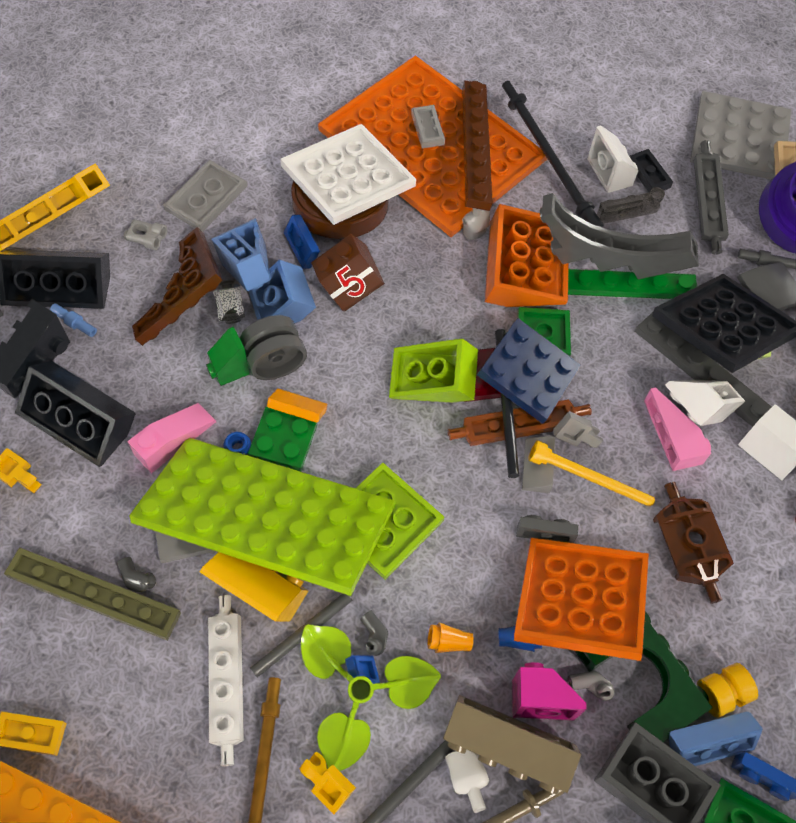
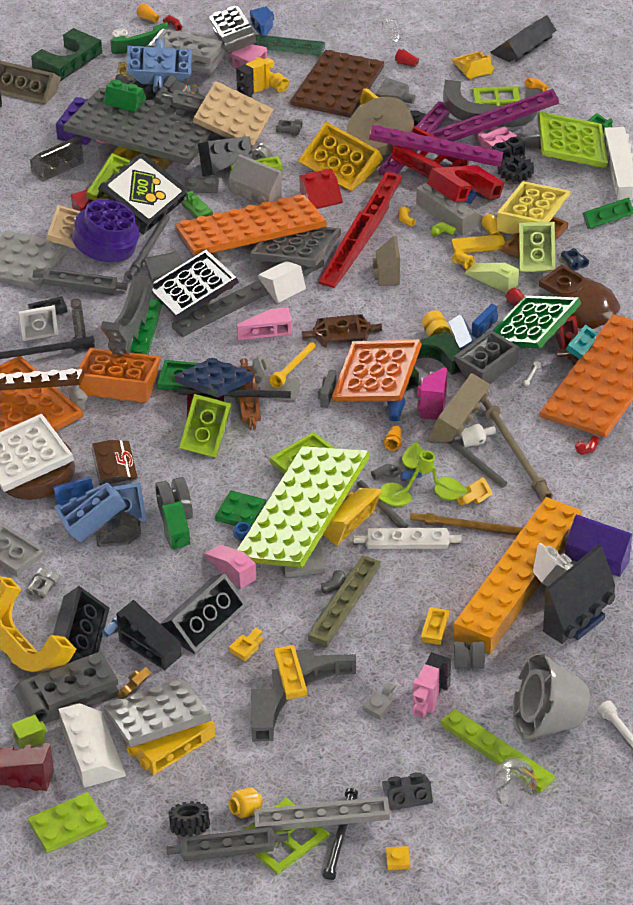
camera: 80 degrees left, 20 degrees down
(195, 279) = (107, 541): reddish brown plate -> none
(297, 405) = (217, 499): light orange tile -> none
(705, 399) = (249, 301): white slope -> none

